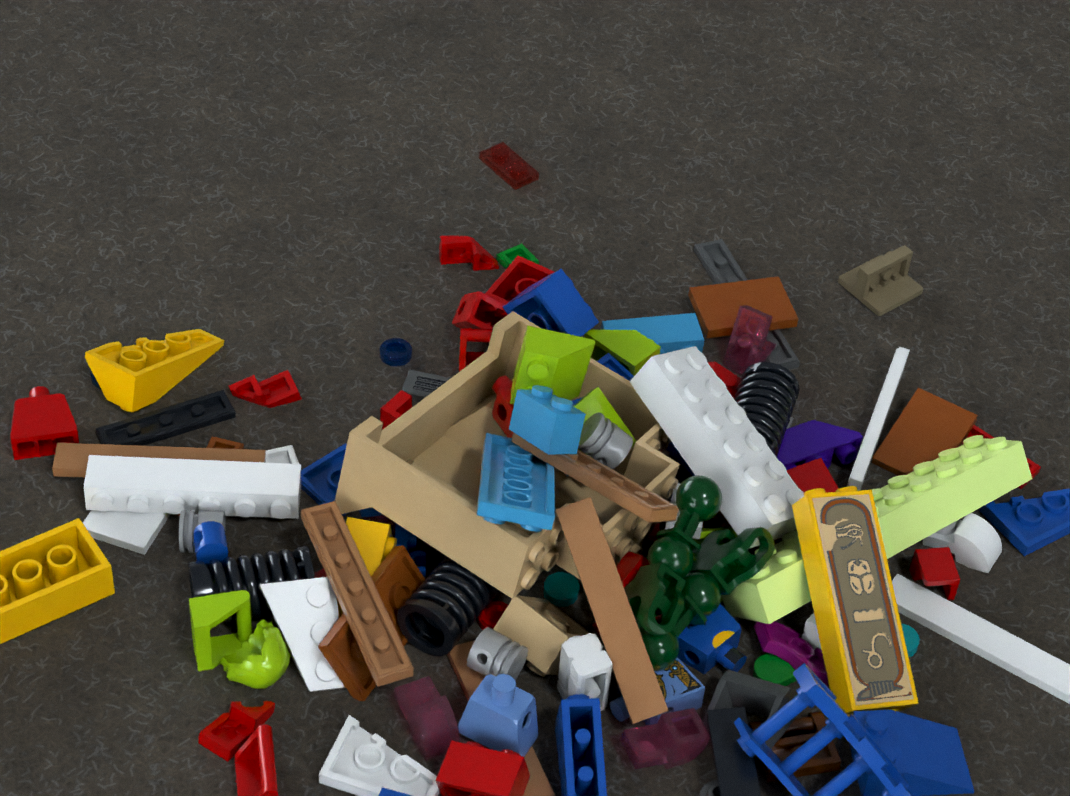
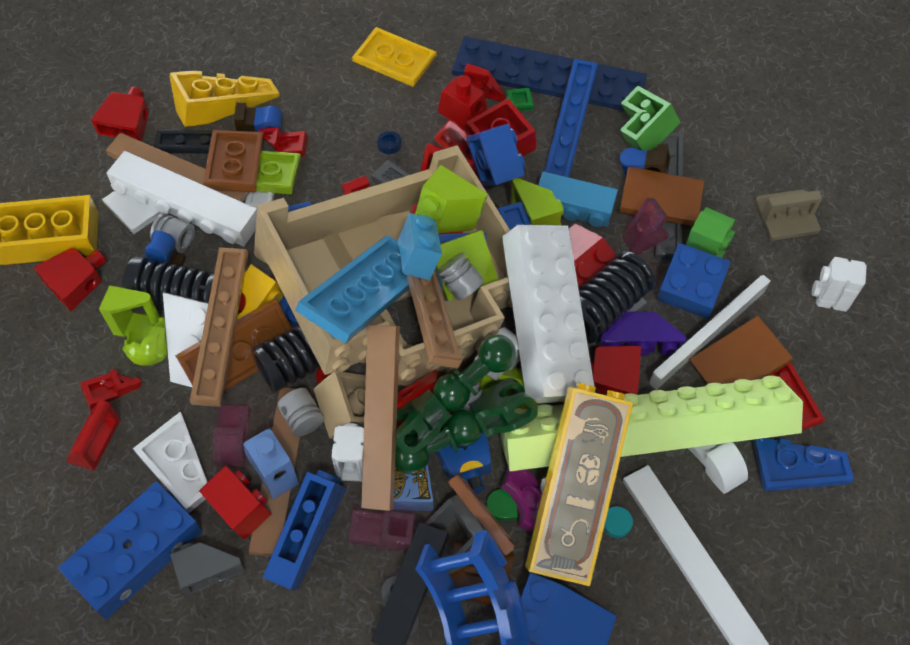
camera: 30 degrees right, 15 degrees up
(102, 623) = (71, 275): none -> red torso
(218, 374) = (256, 118): none -> leg
(228, 426) = (233, 161): none -> dark orange tile
(276, 427) = (278, 172): none -> lime tile
(338, 258) = (394, 56): none -> yellow tile
(460, 274) = (462, 101): none -> red torso
(509, 166) = (559, 23): clear red plate -> none
(537, 221) = (544, 72): none -> dark blue plate
(592, 257) = (571, 118): none -> blue tile
(682, 232) = (649, 120): none -> bright green brick
(707, 273) = (651, 160): none -> leg
(730, 658) = (482, 513): none -> dark orange tile
(821, 332) = (711, 233): none -> bright green brick
(831, 377) = (693, 280): none -> blue brick
(936, 568) = (677, 476): red panel -> none
(979, 329) = (839, 283): none -> white brick

